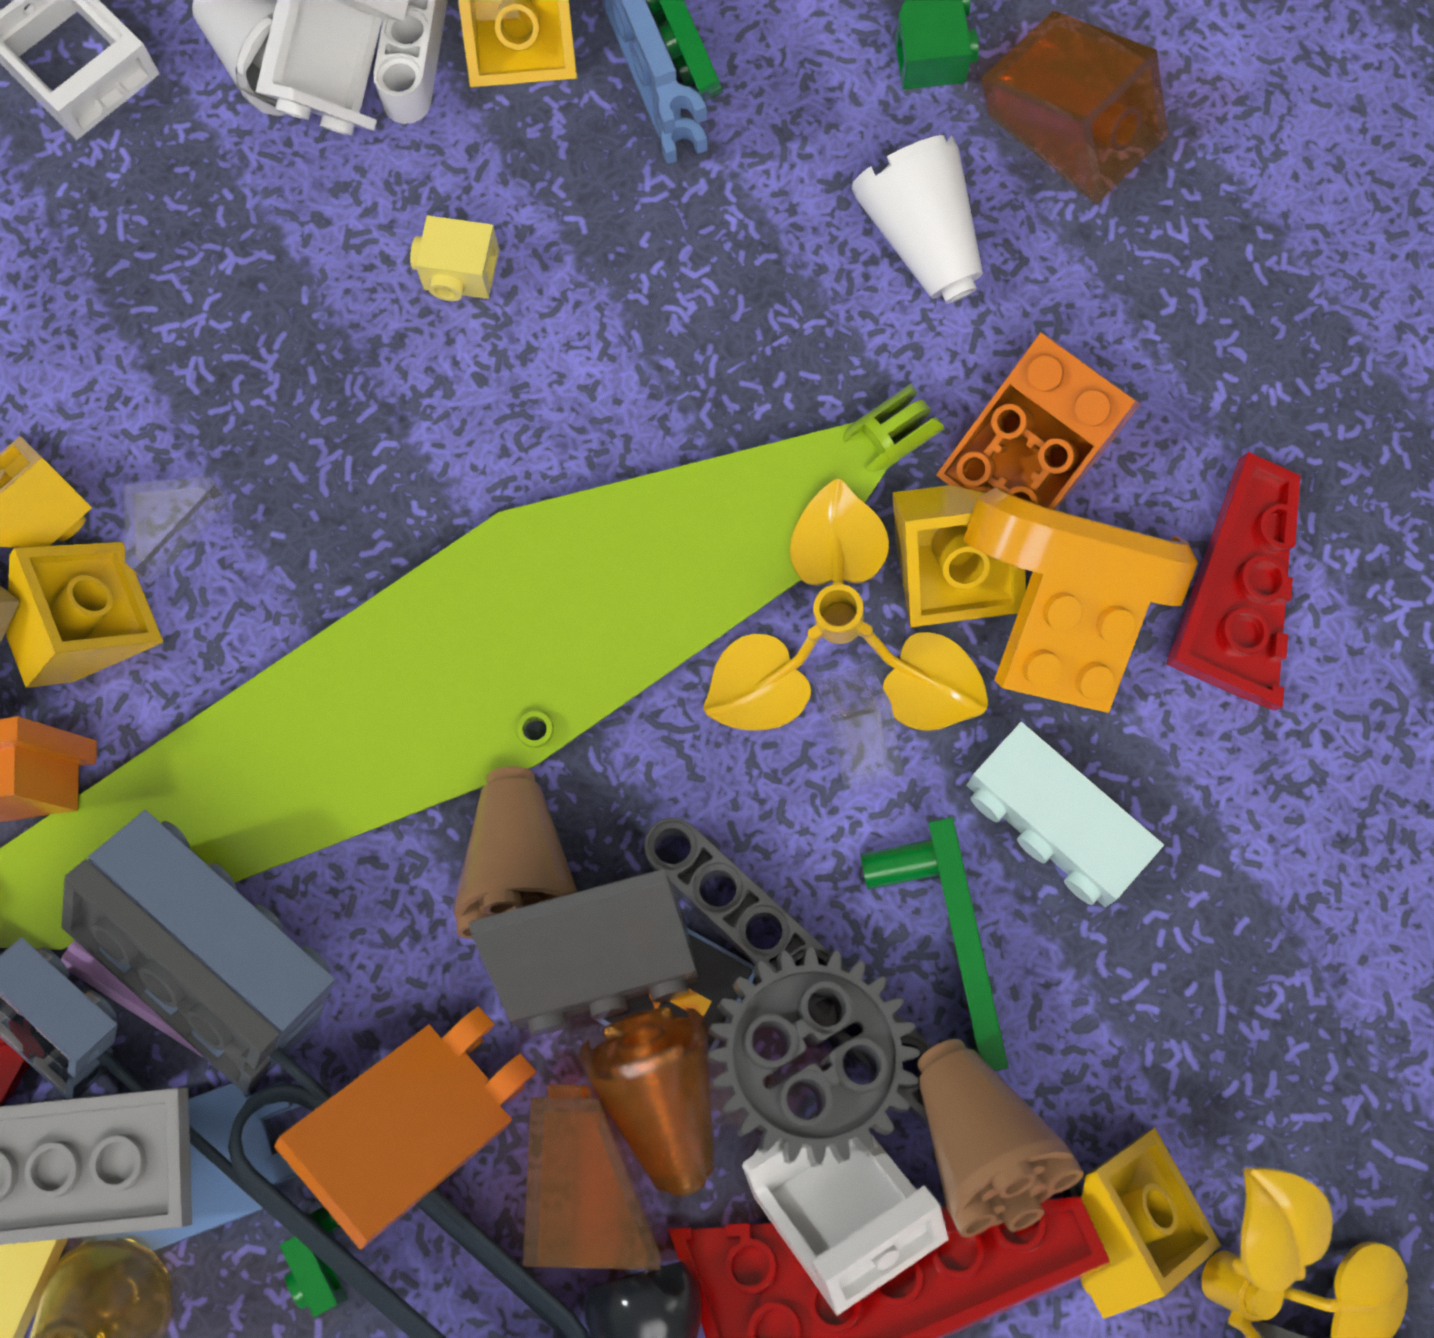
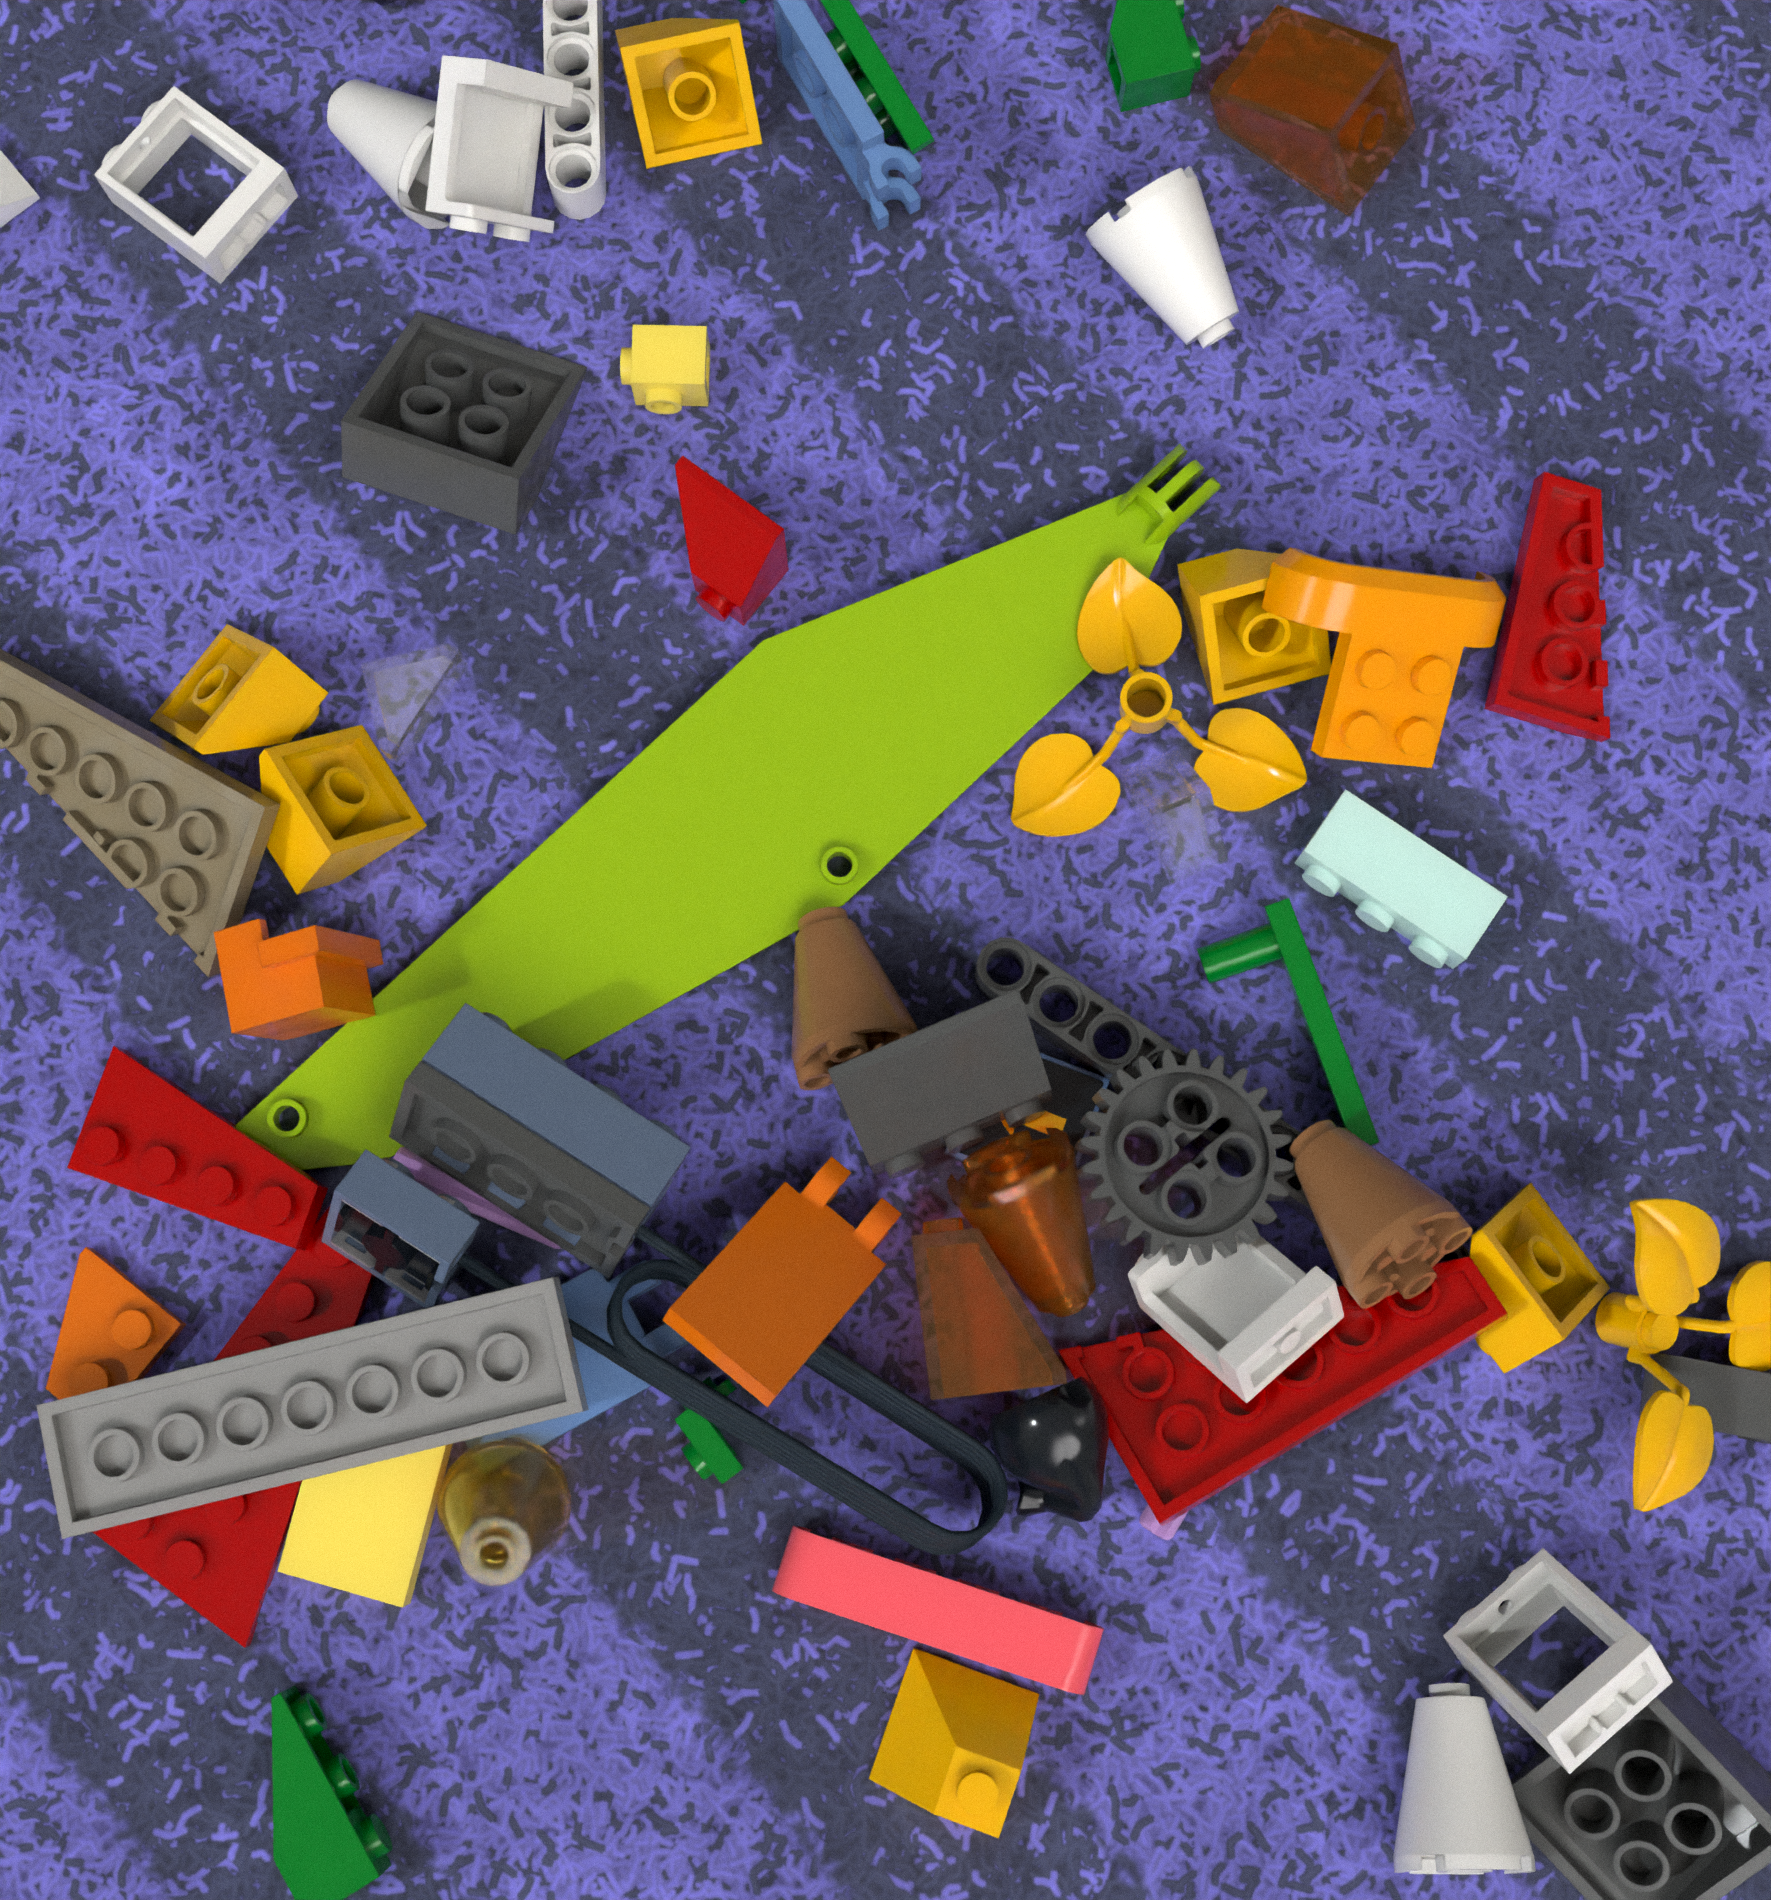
camera: 10 degrees left, 5 degrees up
(259, 284) = (460, 422): none -> dark grey slope
(478, 422) = (730, 545): none -> red slope
(1041, 428) = (1322, 475): orange slope -> none

